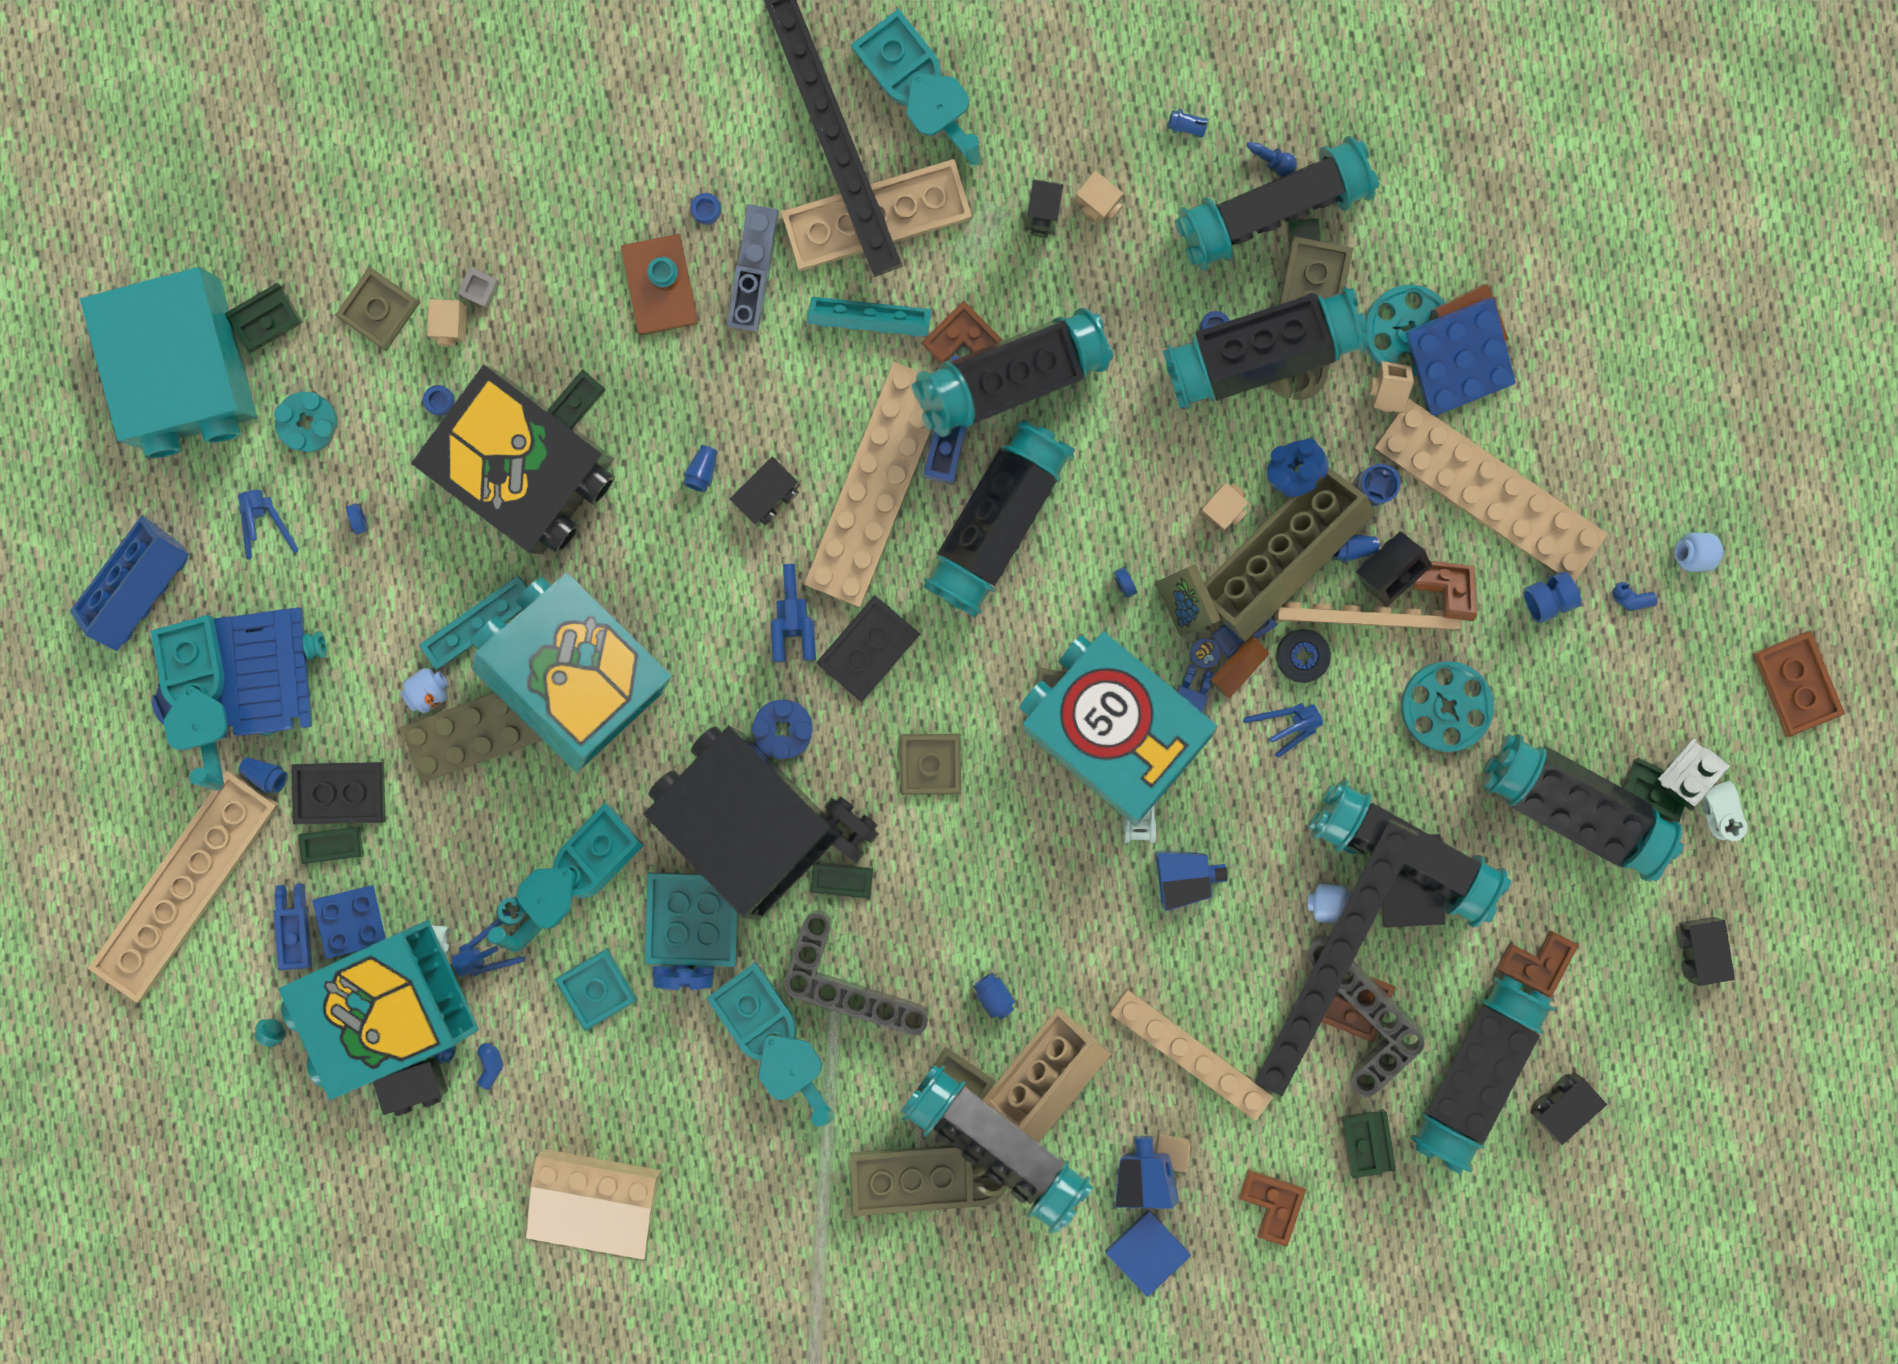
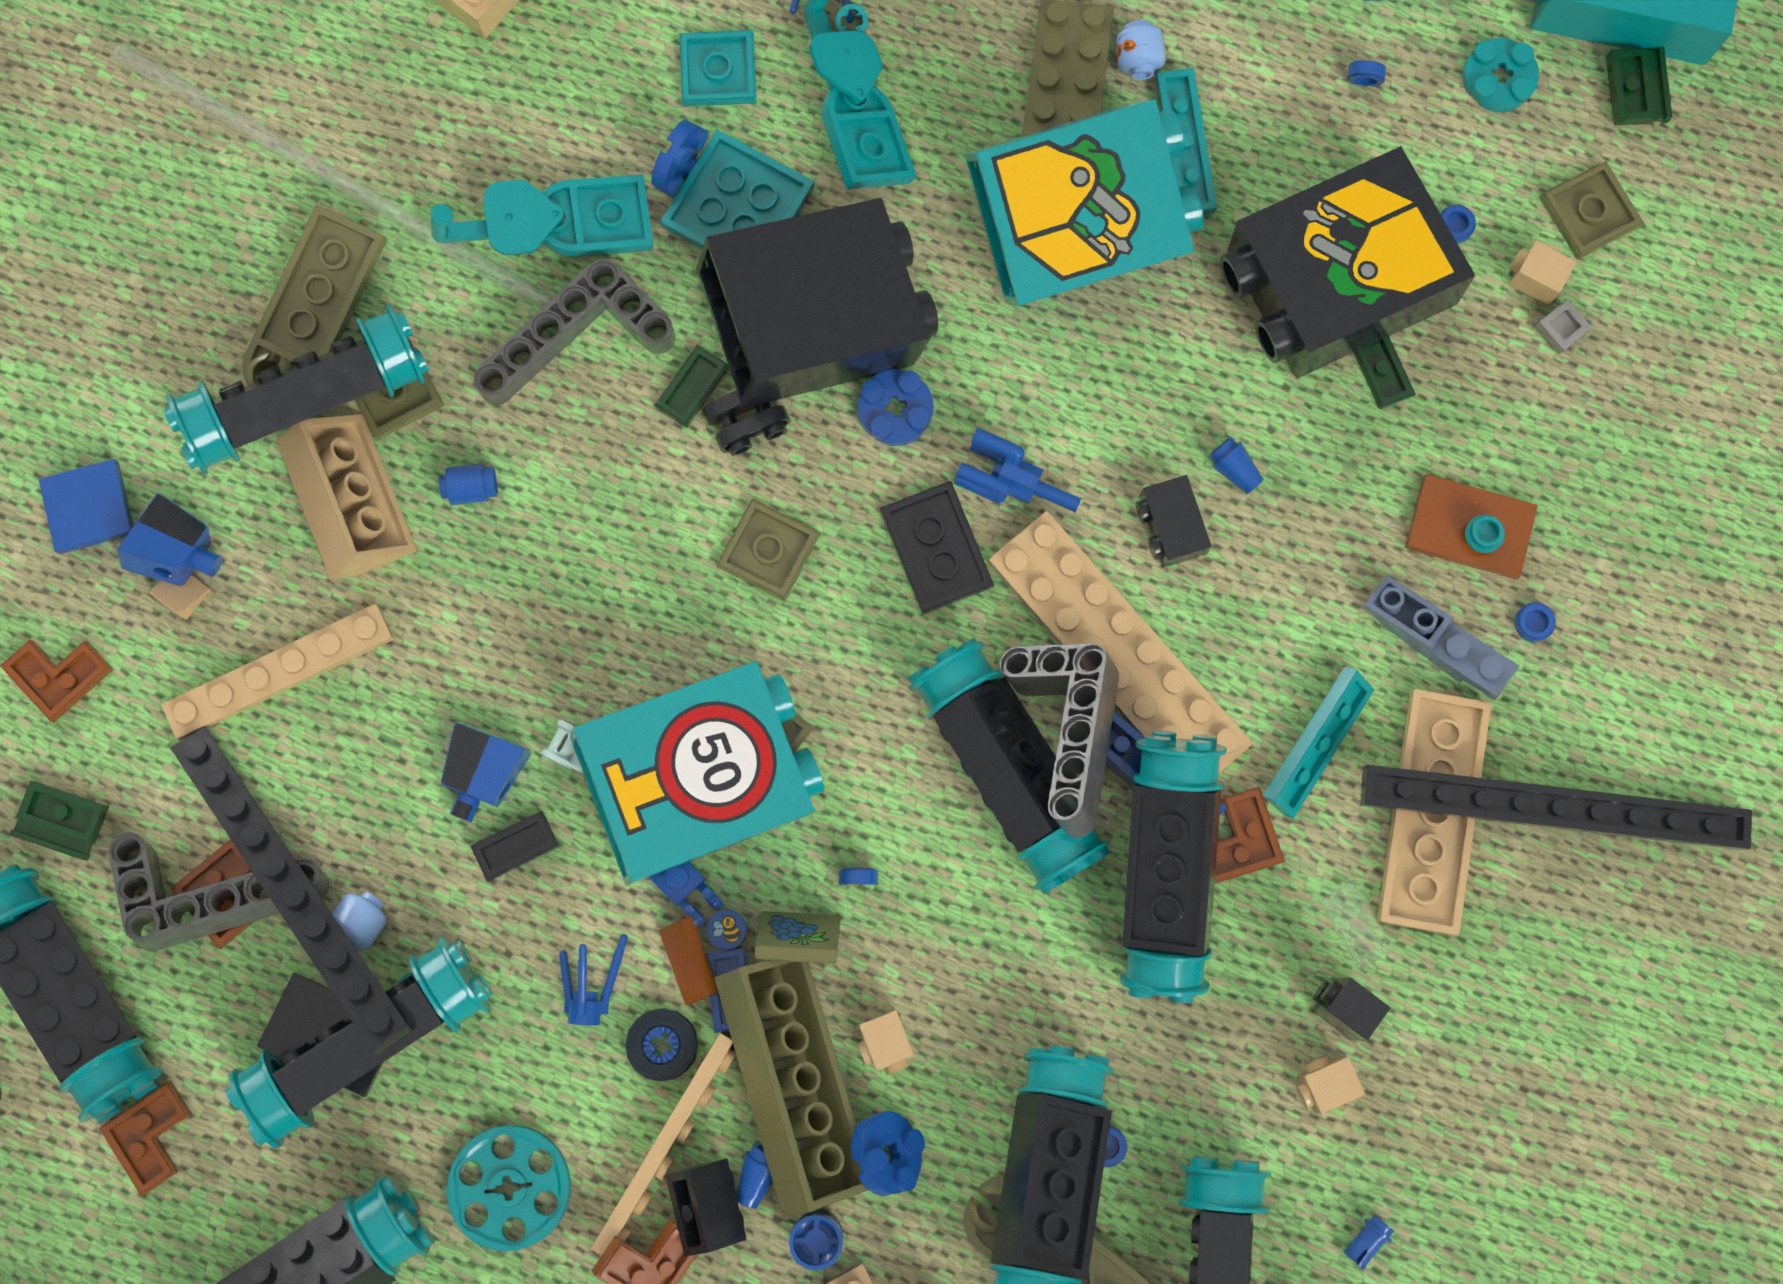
camera: 120 degrees right, 10 degrees down
(913, 78) = (1577, 937): teal plate -> none
(948, 485) = (1071, 672): none -> dark grey beam
(1224, 826) = (515, 846): none -> black tile

